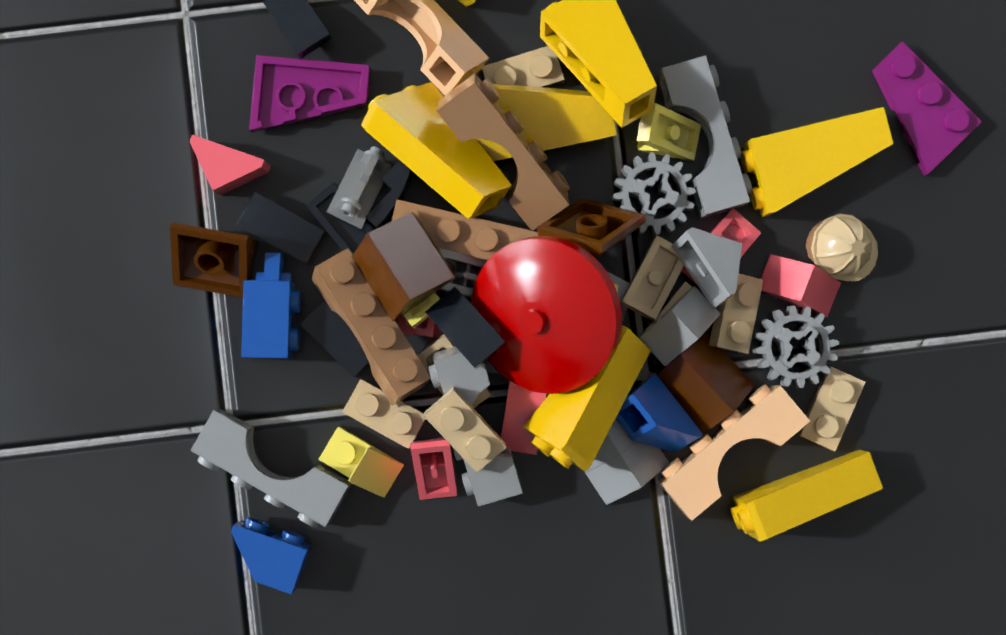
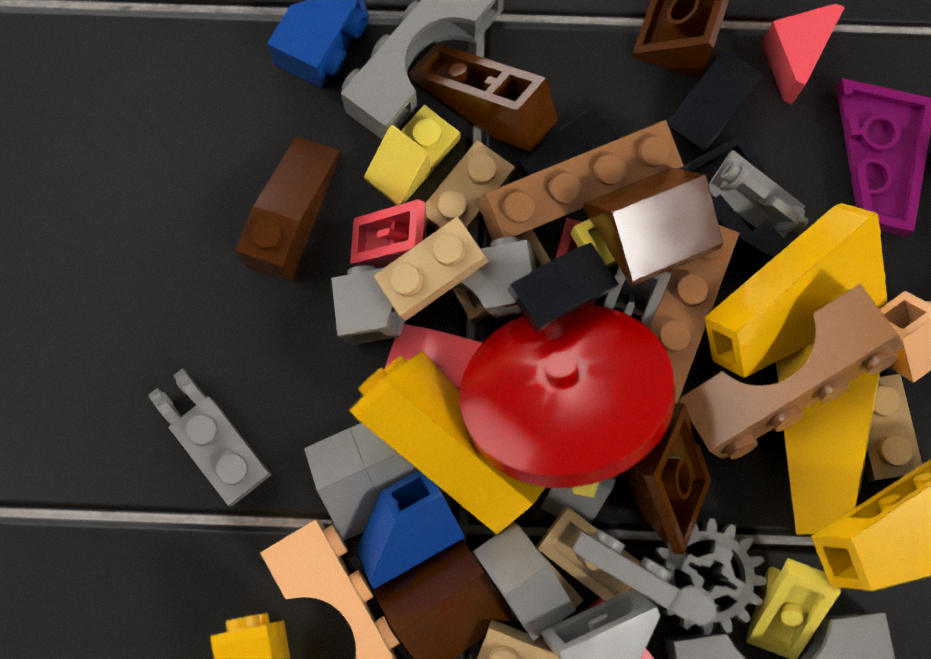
camera: 100 degrees right, 10 degrees down
(270, 312) = (613, 72): blue hinge -> none
(303, 410) = (491, 95): none -> reddish brown slope
(419, 551) = (288, 209): none -> reddish brown slope
(611, 575) = (212, 442): none -> light grey hinge
(668, 240) = (646, 578): none -> light grey hinge

